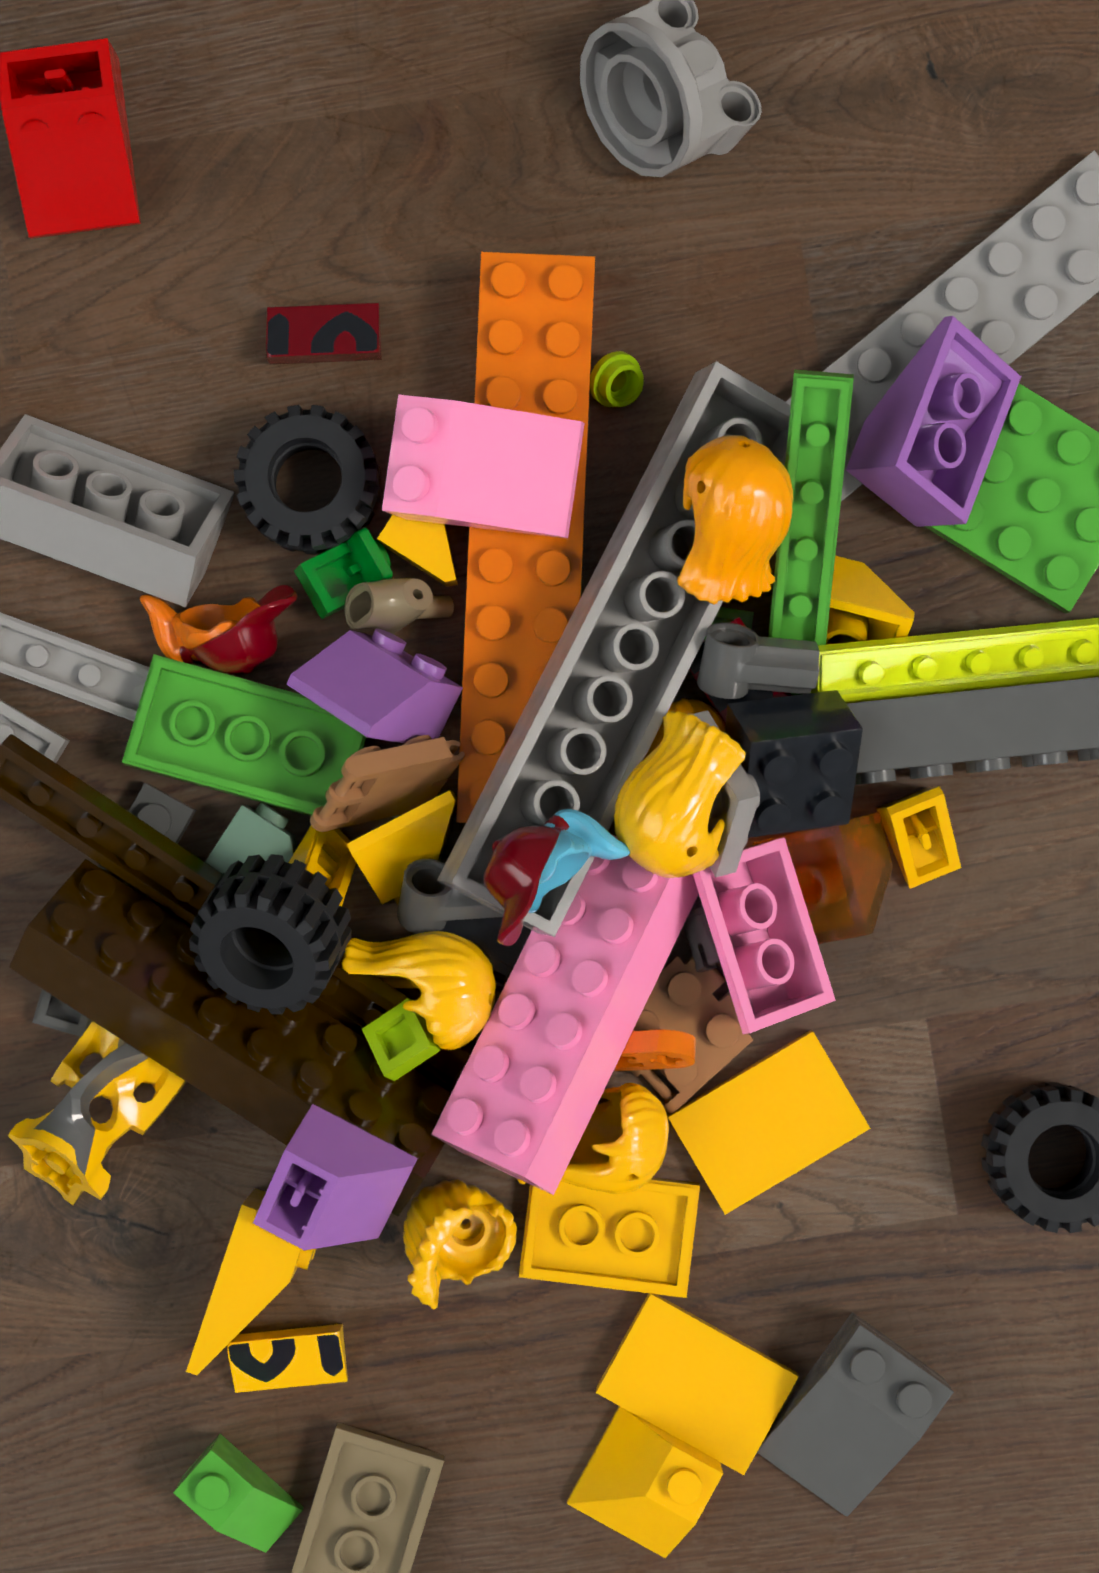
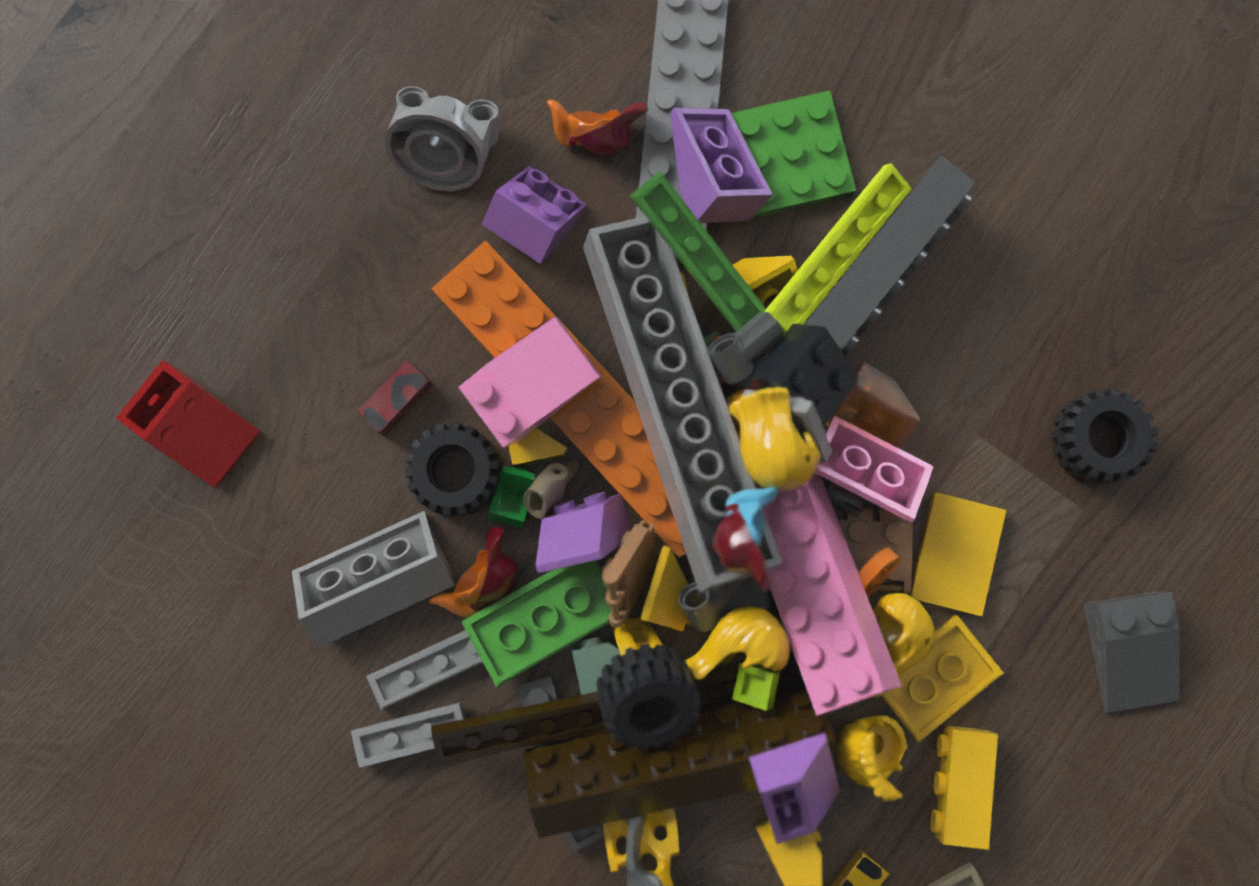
camera: 40 degrees left, 5 degrees down
(519, 1371) = (964, 787): none -> yellow brick
(616, 380) = (550, 287): lime plate -> none
(645, 1483) = (1074, 778): yellow slope -> none
(682, 278) = (533, 213): none -> medium lavender slope
(697, 1383) = (1048, 708): yellow tile -> none
(740, 517) = (673, 286): light orange piece -> none
(844, 250) = (595, 131): none -> hair
(921, 835) = (892, 353): yellow slope -> none

